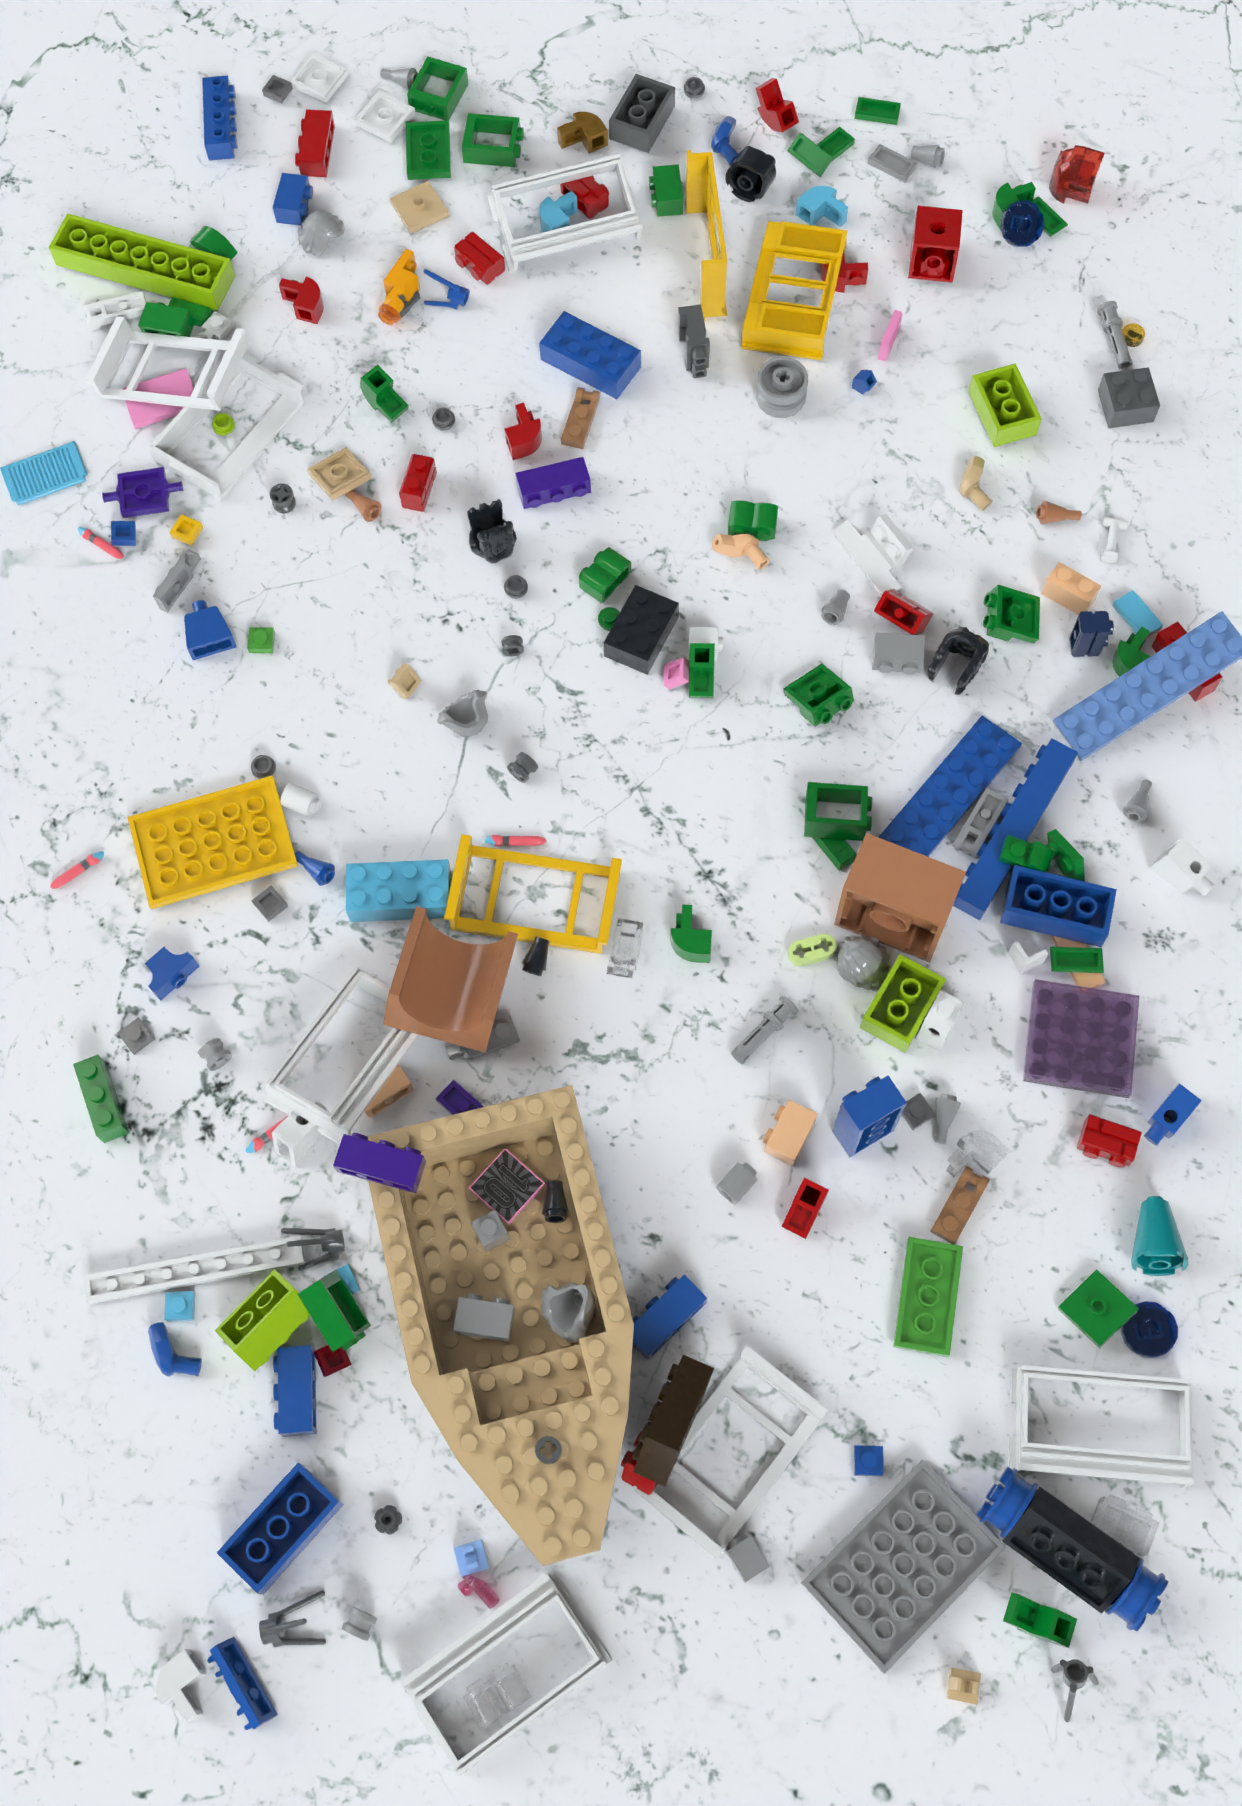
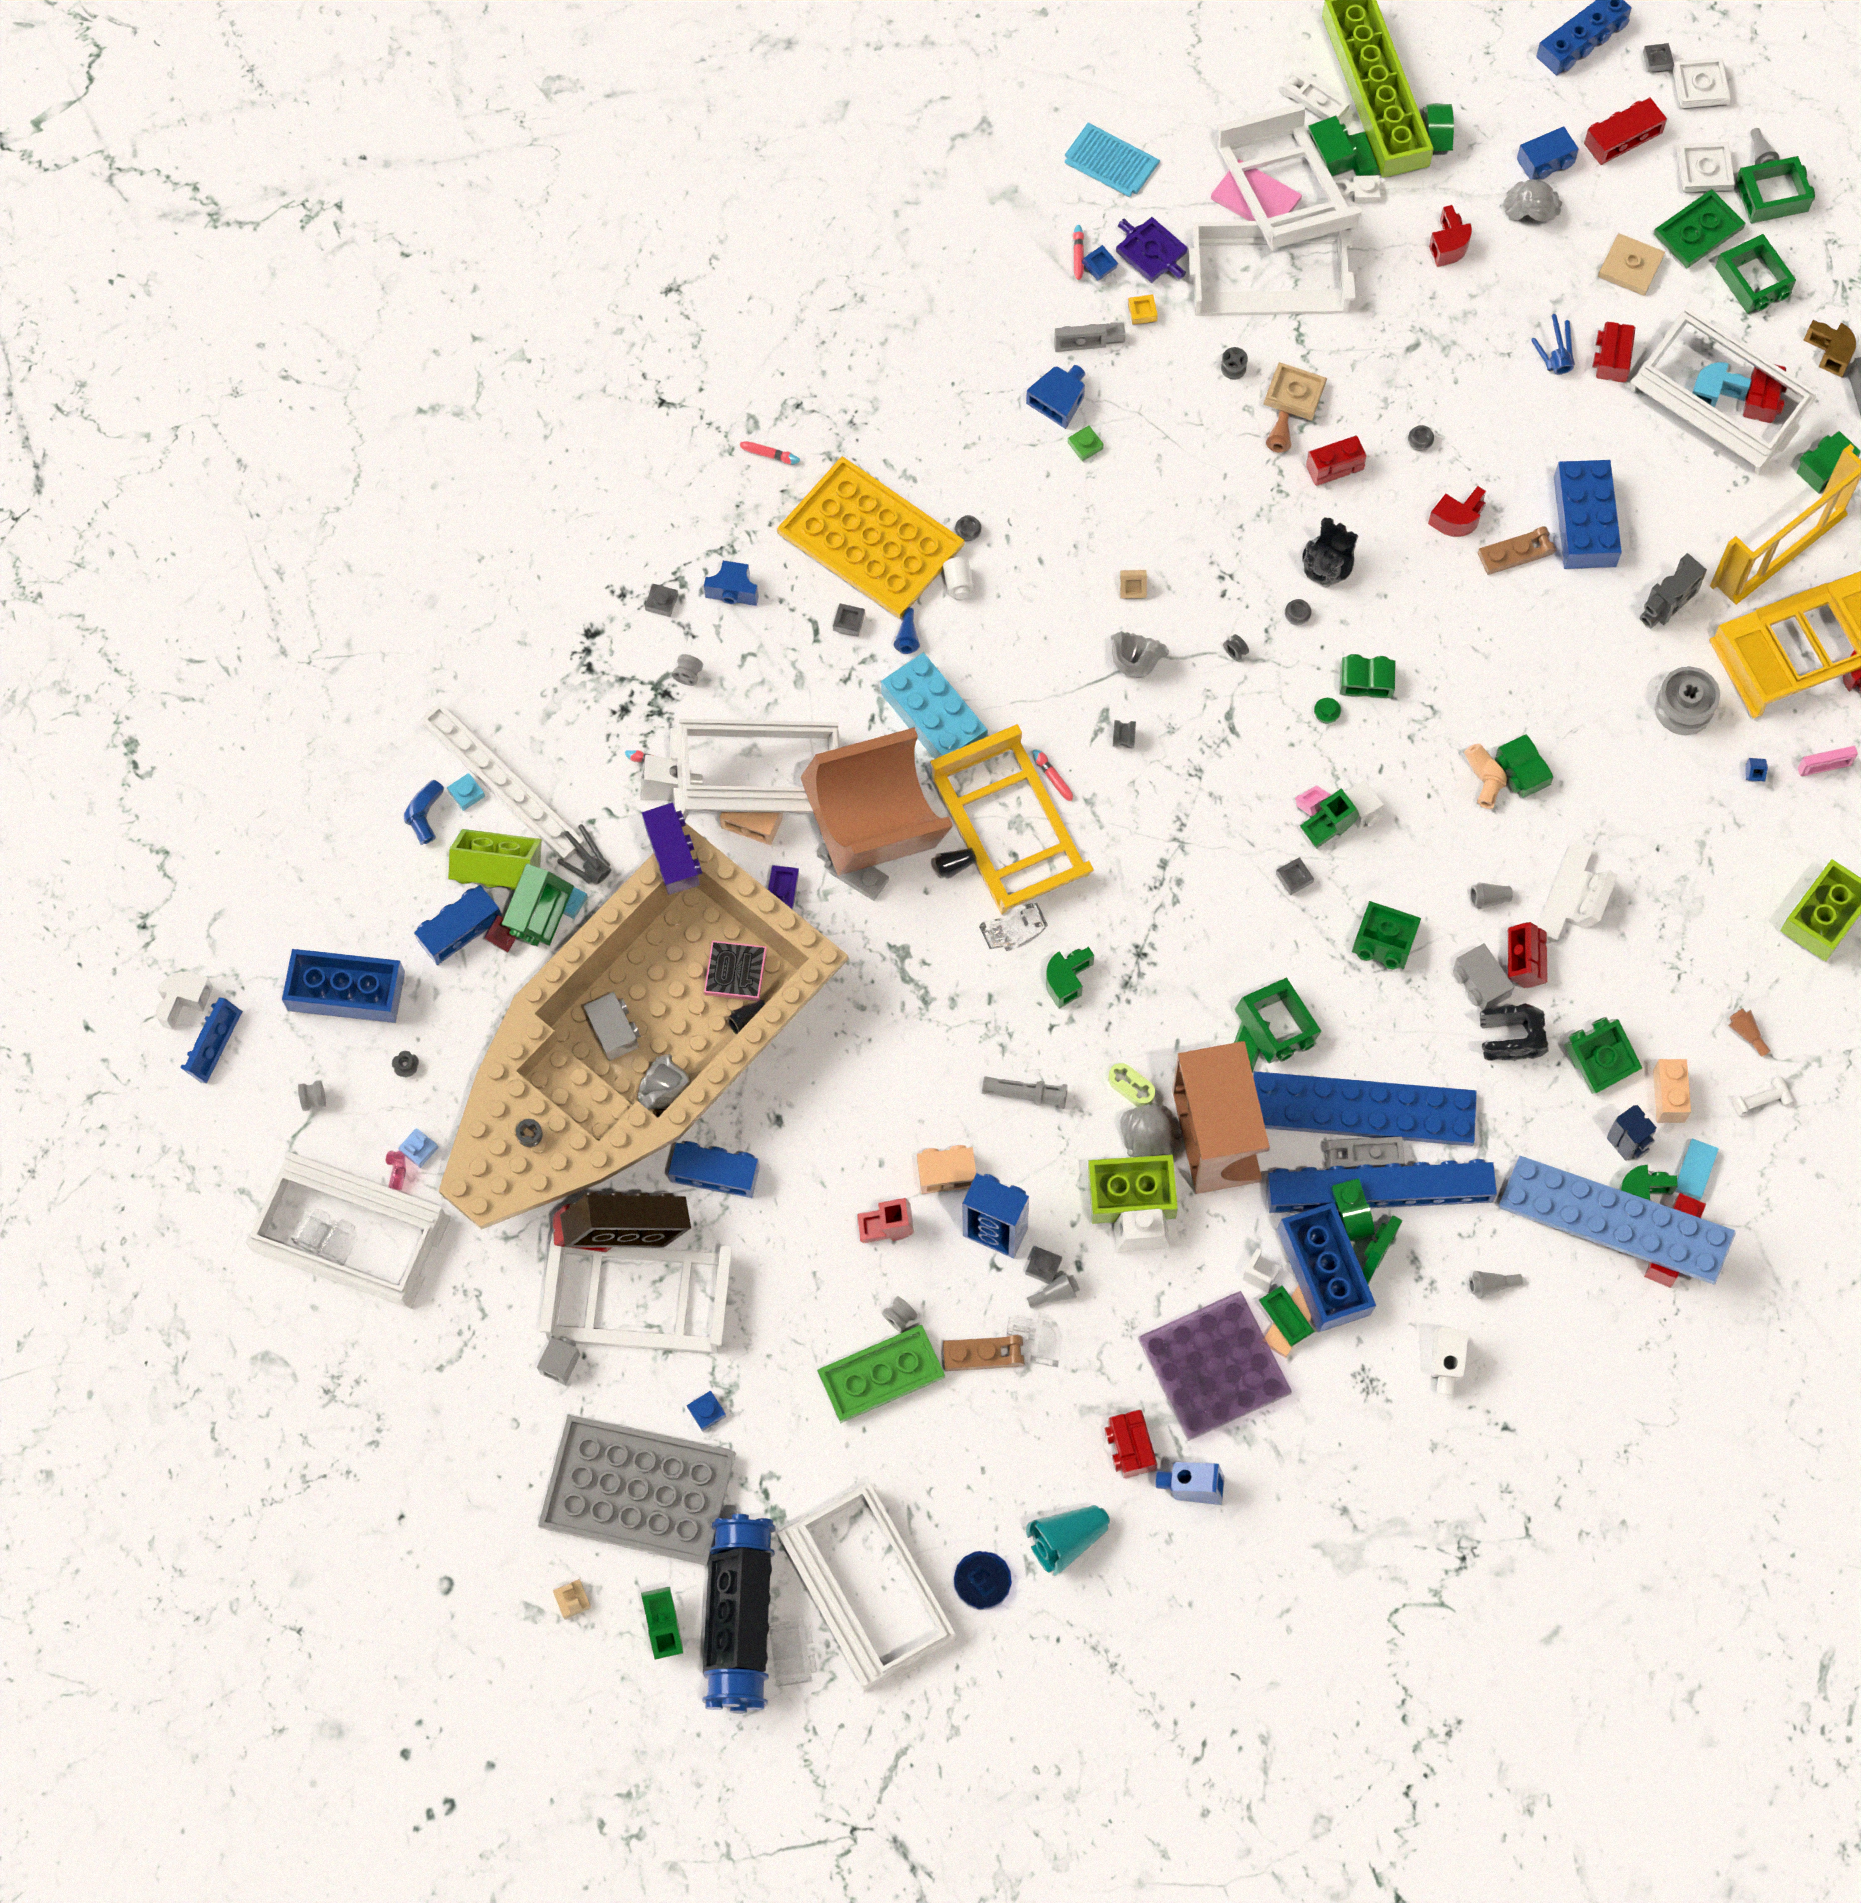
camera: 55 degrees right, 0 degrees up
(101, 1098) = (588, 611): green brick -> none
(223, 424) = (1270, 264): lime plate -> none
(274, 1629) = (268, 1037): dark grey plant -> none
(379, 392) = (1401, 370): green brick -> none
(400, 288) = (1528, 309): light orange plate -> none
(490, 1230) = (686, 981): light grey brick -> none
(553, 483) = (1427, 572): dark purple brick -> none
(641, 629) = (1334, 743): black brick -> none
(726, 725) = (1294, 876): none -> flat silver plate
(737, 1182) = (871, 1154): light grey brick -> none
(887, 1248) = (899, 1314): none -> light grey wheel
(970, 483) = (1720, 931): tan arm -> none
(1074, 1676) = (632, 1675): dark grey plant -> none
(1098, 1308) = (969, 1523): green plate -> none

